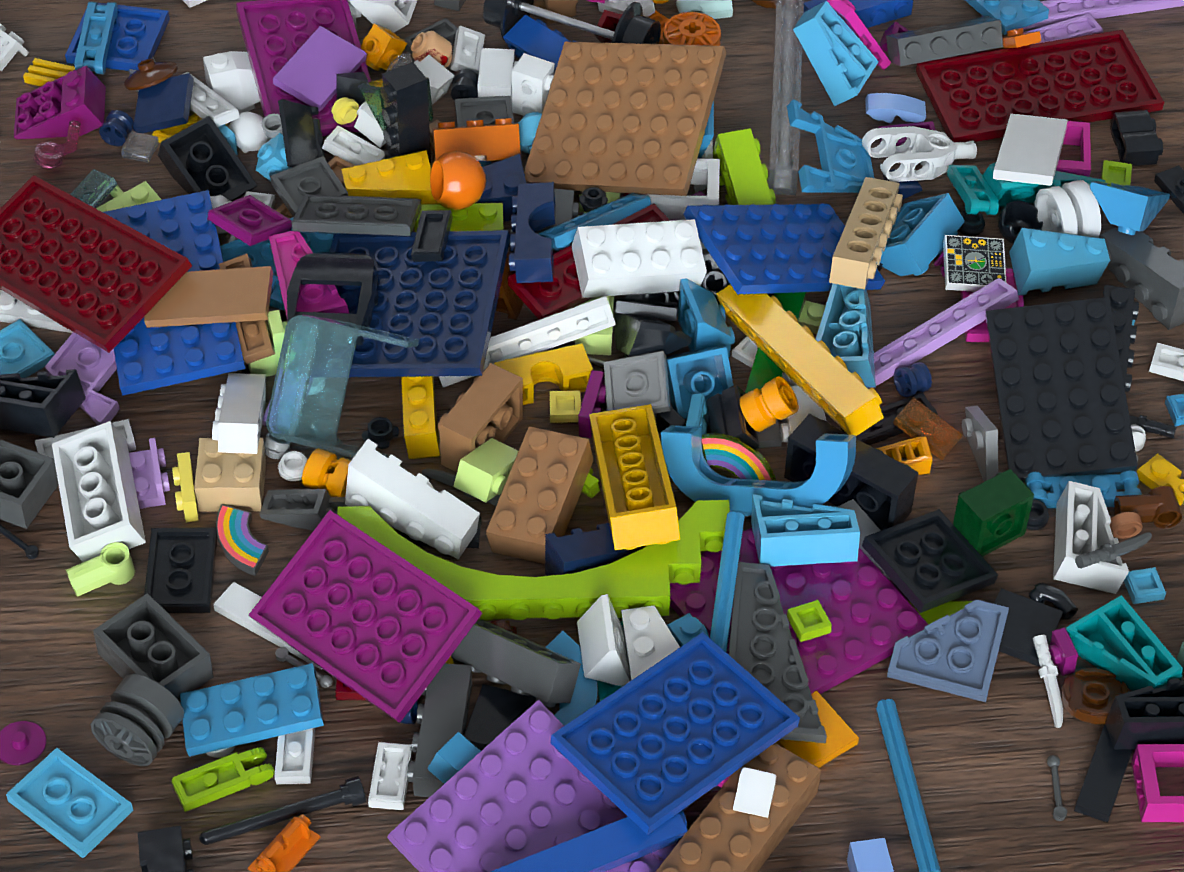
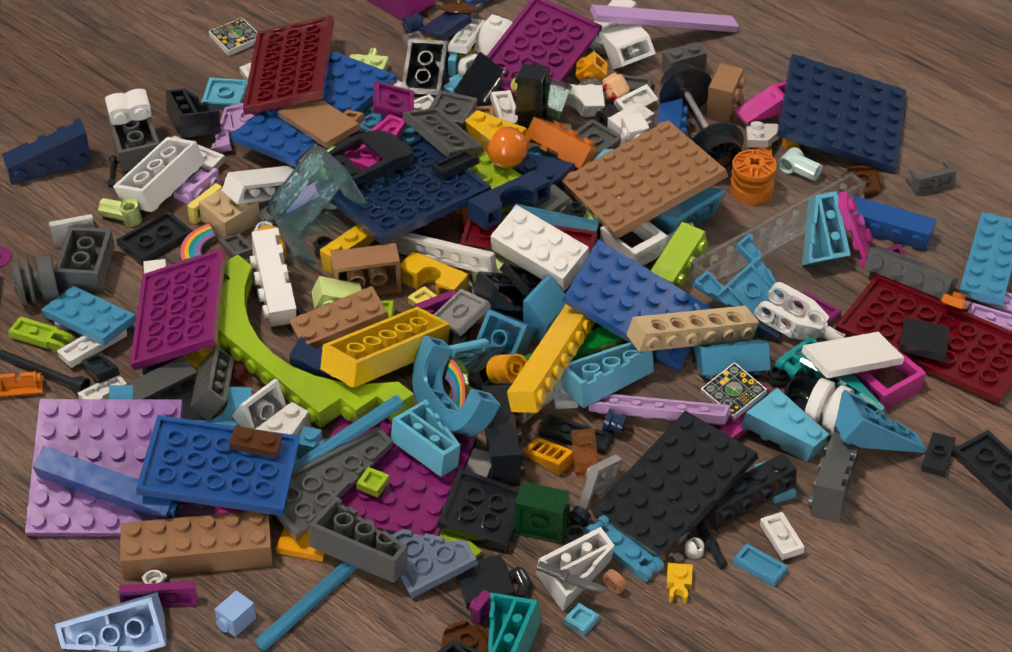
camera: 50 degrees right, 5 degrees down
(50, 154) = (367, 15): clear pink plate -> none
(72, 637) = (60, 227): none -> white slope
(94, 188) = (355, 45): clear light blue plate -> none
(313, 68) = (545, 50): medium lavender tile -> none
(349, 753) = (100, 367): none -> black tile
(682, 674) = (256, 441): none -> reddish brown plate
(755, 792) = (217, 525): white slope -> none
(888, 105) = (833, 289): light blue slope -> none
(891, 688) = (357, 541): none -> dark grey wedge
(1046, 93) = (924, 339): none -> black tile
(1049, 673) = (459, 611): white piece -> none
(1116, 172) = (904, 413): lime plate -> none
(1136, 137) = (951, 404): black brick -> none
(1157, 506) = (646, 588): reddish brown piece -> none

